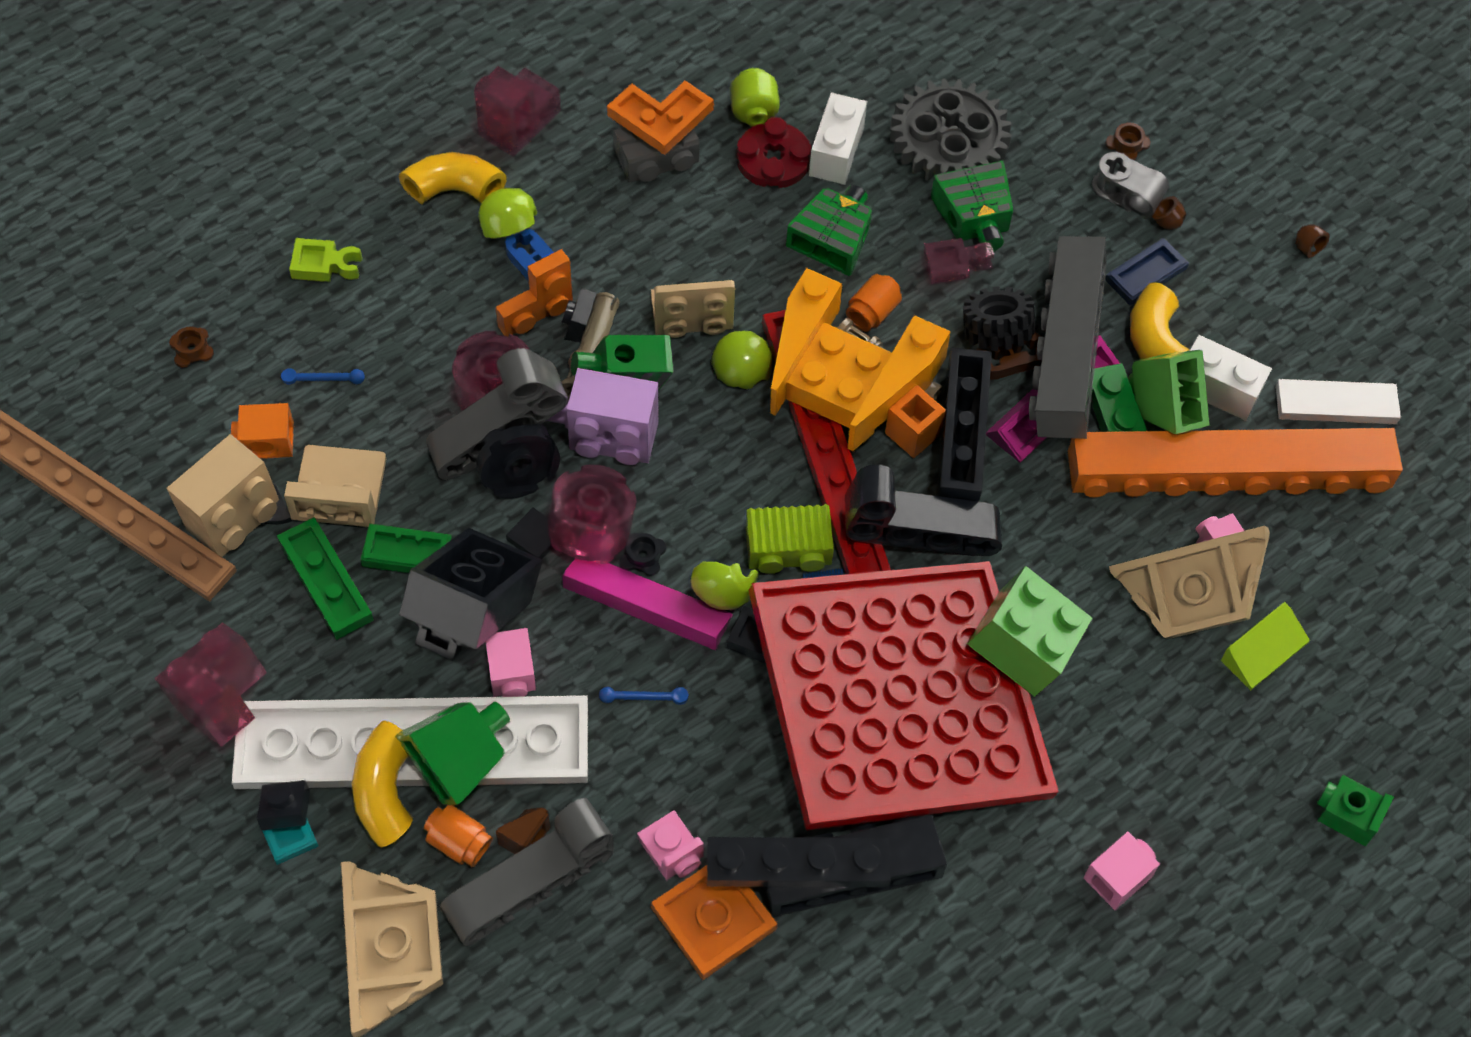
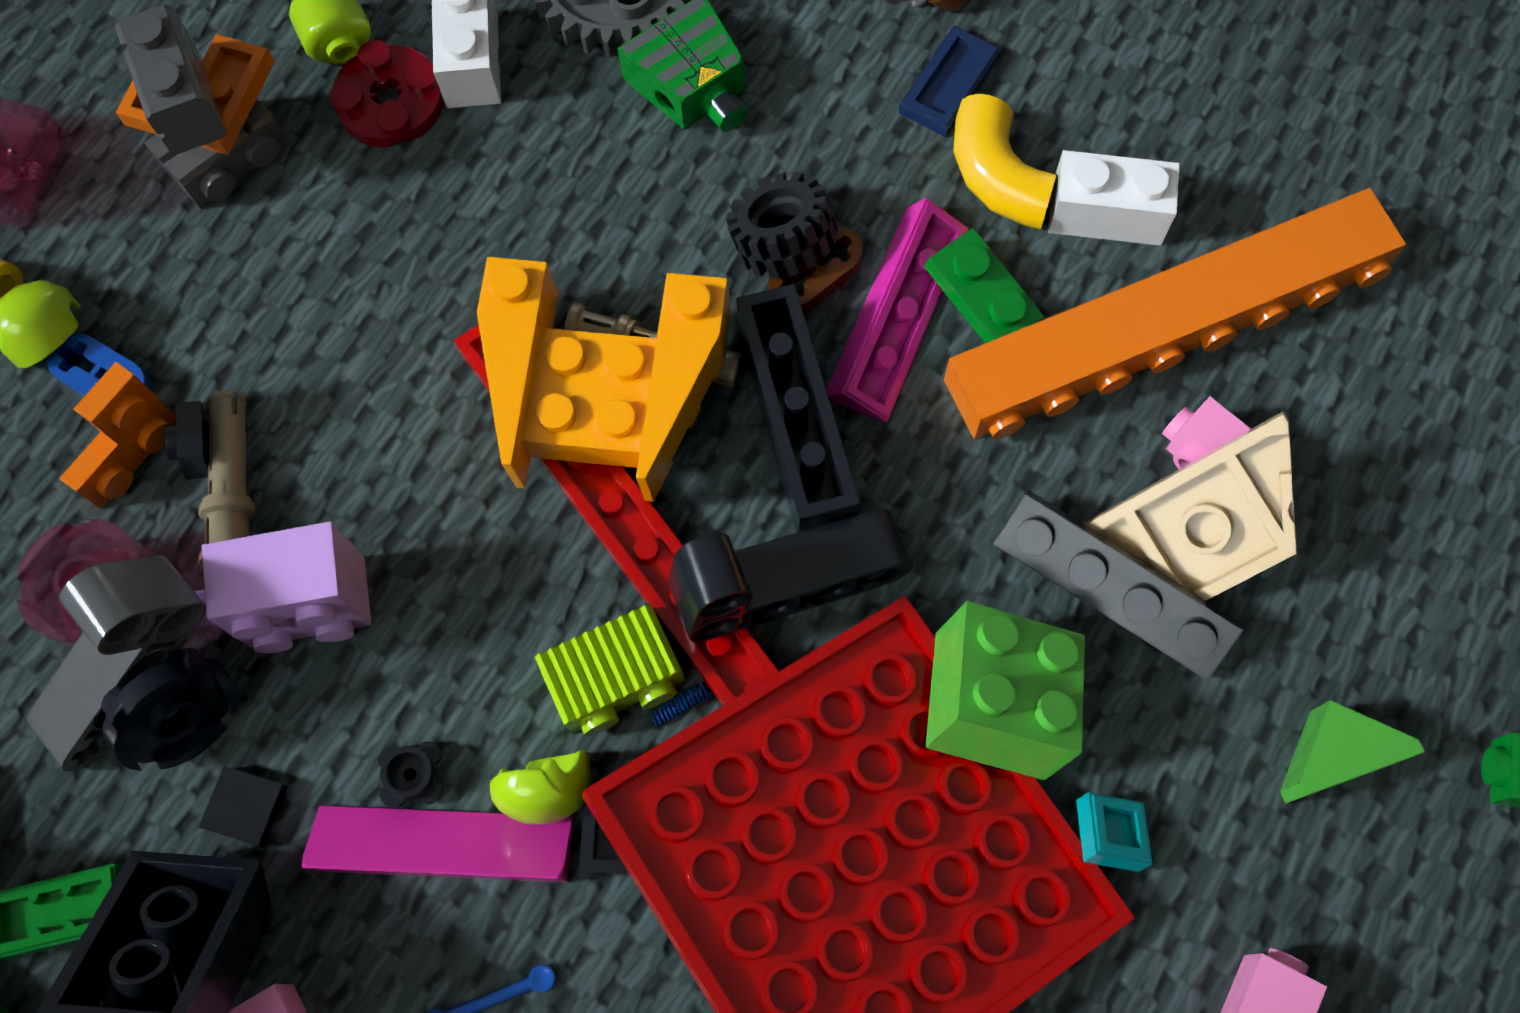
camera: 15 degrees left, 10 degrees up
(591, 513) = (277, 758): clear pink brick -> none
(629, 356) = (278, 496): green torso -> none
(652, 98) = (170, 79): none -> dark grey brick
(693, 308) = (349, 369): tan bracket -> none
(742, 359) = (448, 417): lime hair -> none
(832, 228) = (505, 174): green torso -> none
(873, 302) = (601, 263): orange brick -> none
(915, 421) = (724, 423): orange brick -> none
(952, 261) = (686, 162): clear pink plate -> none
(1066, 741) = (1113, 832): none -> teal tile
(1070, 339) = (893, 222): dark grey brick -> none
(1129, 605) = (1119, 585): none -> plate
(1172, 390) = (1059, 246): bright green torso -> none
(1233, 750) = (1341, 747): none -> bright green slope
(1265, 646) = (1321, 571): lime slope -> none
(1337, 401) = (1269, 173): white tile -> none

